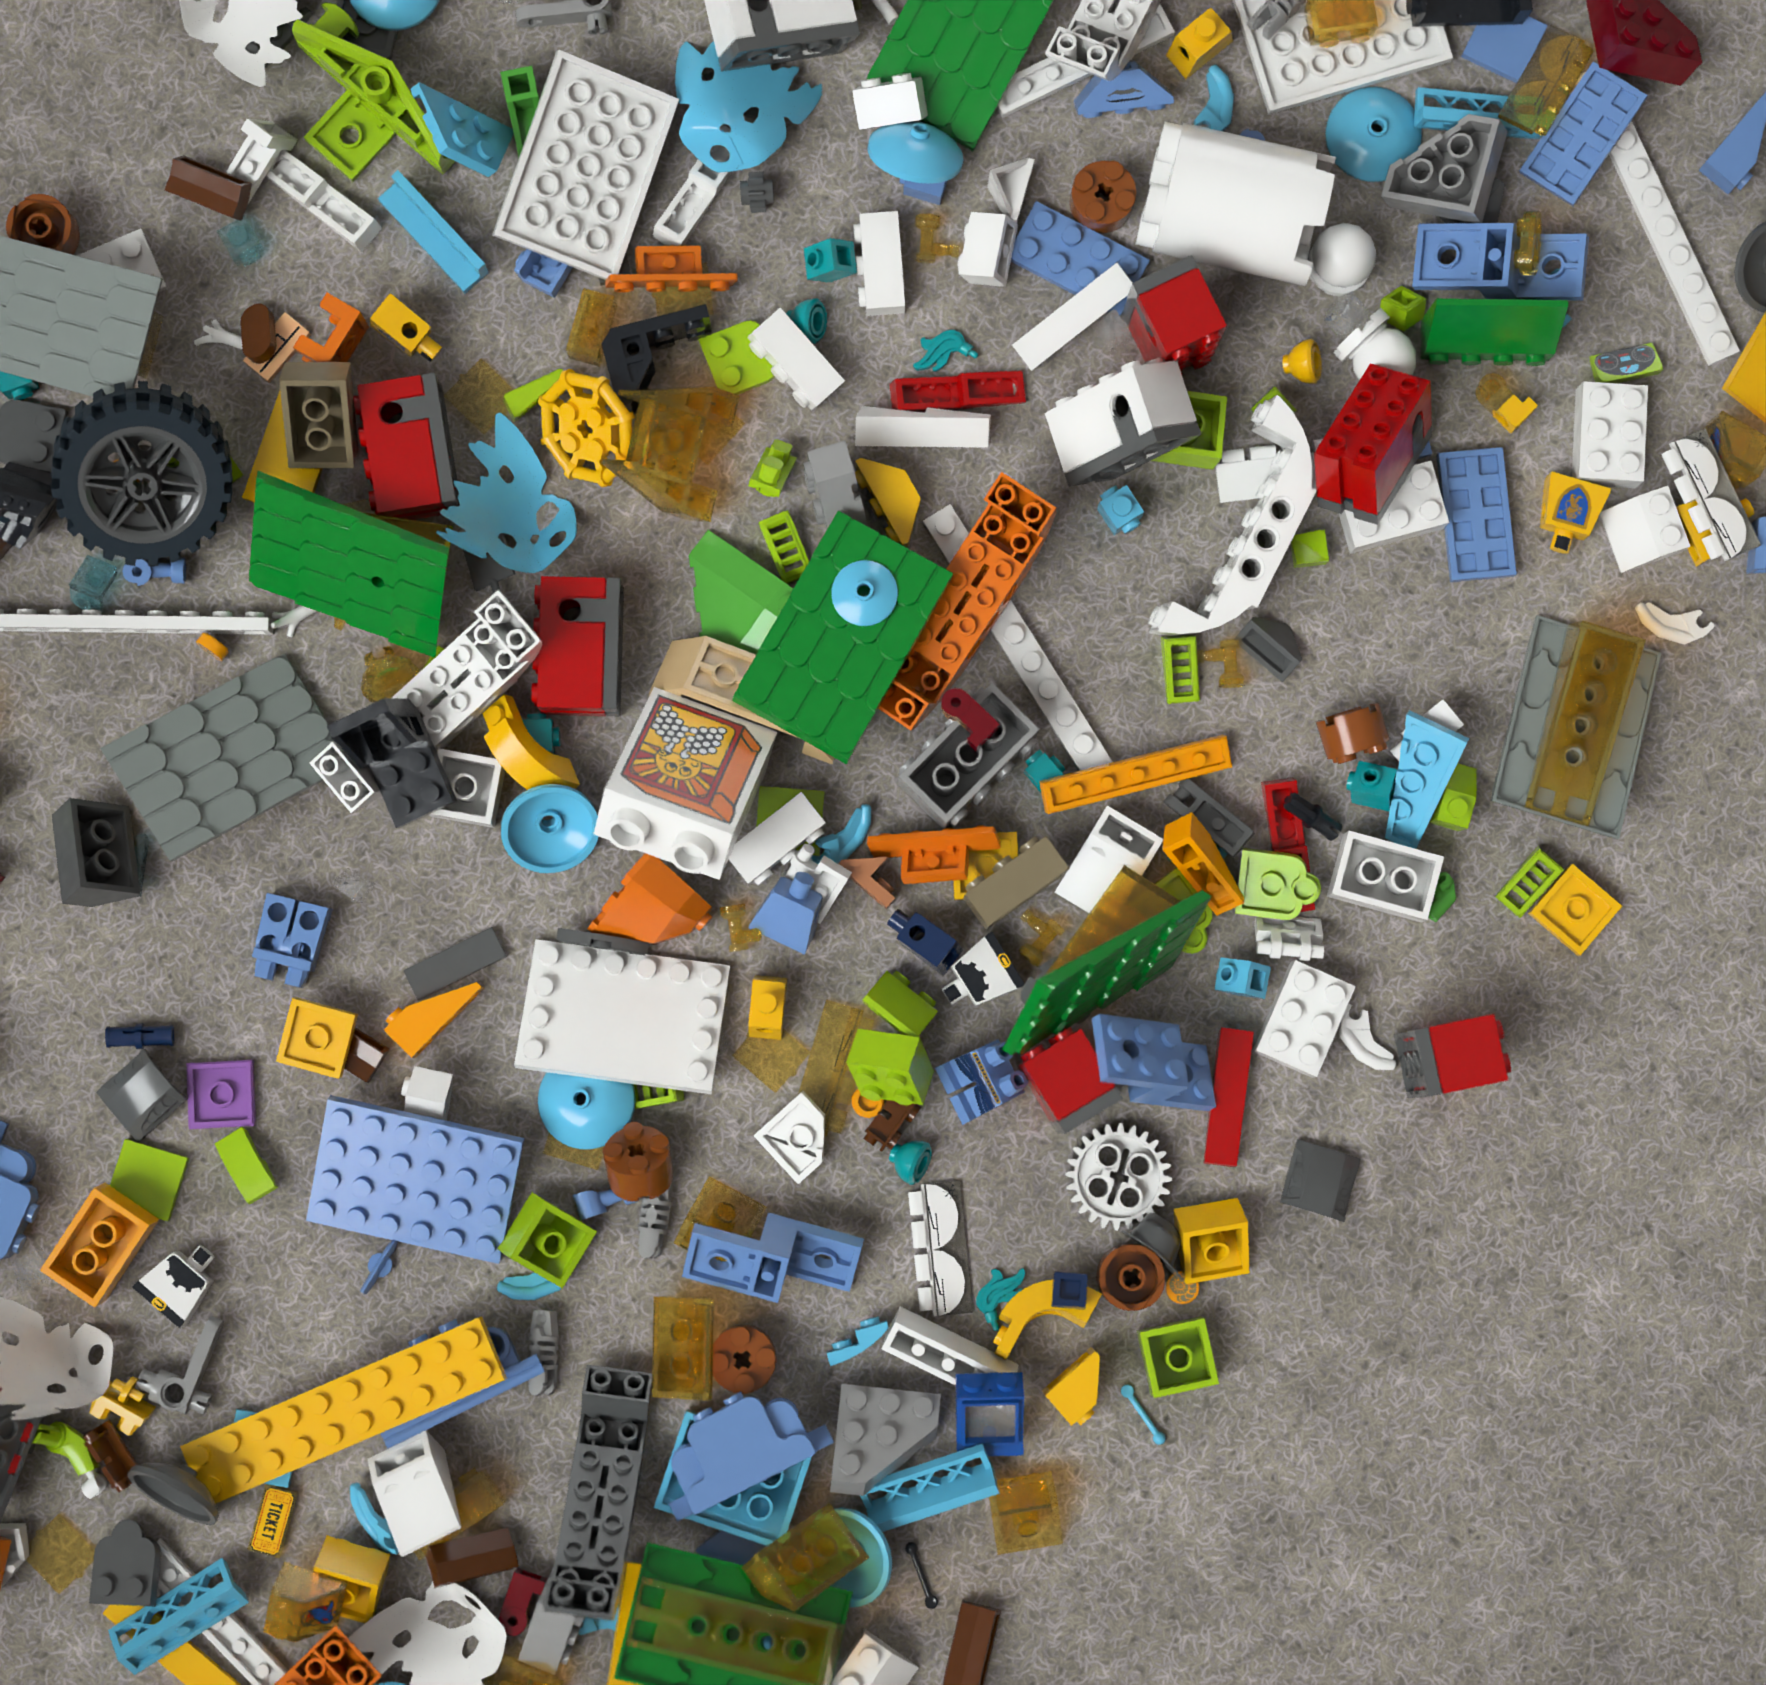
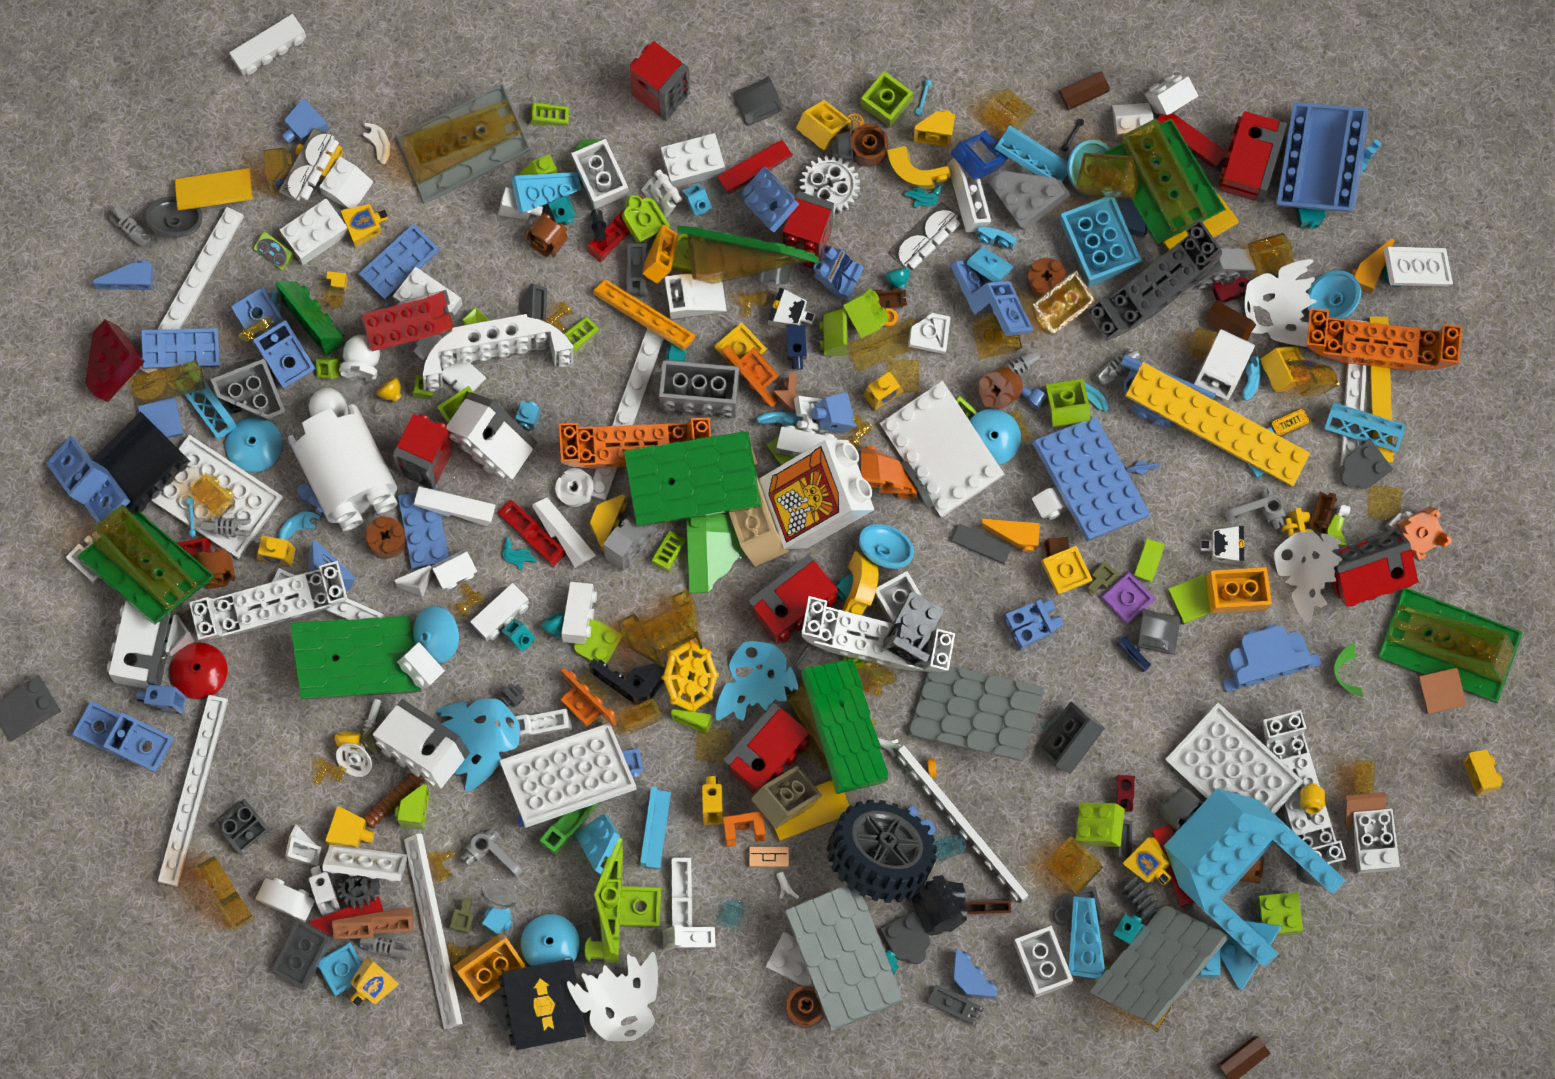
camera: 125 degrees left, 10 degrees down
(176, 1490) = (1312, 467): dark grey dish -> none
(209, 187) = (720, 947): reddish brown piece -> none
(258, 333) = (770, 867): reddish brown tile -> none
(274, 1086) = (1103, 577): none -> olive plate
(739, 1449) = (1086, 241): medium blue brick -> none
(773, 469) = (642, 578): lime hips -> none
(823, 1297) = (989, 265): none -> medium azure plate
(870, 608) = (661, 491): medium azure dish -> none
(952, 492) = (582, 494): none -> white plate
(961, 707) = (682, 391): dark red leg -> none
(1014, 881) = (738, 323): dark tan piece -> none
(1069, 1290) = (897, 162): dark blue plate -> none
(1360, 1042) = (683, 128): white piece -> none
(1575, 909) = (545, 85): yellow plate -> none

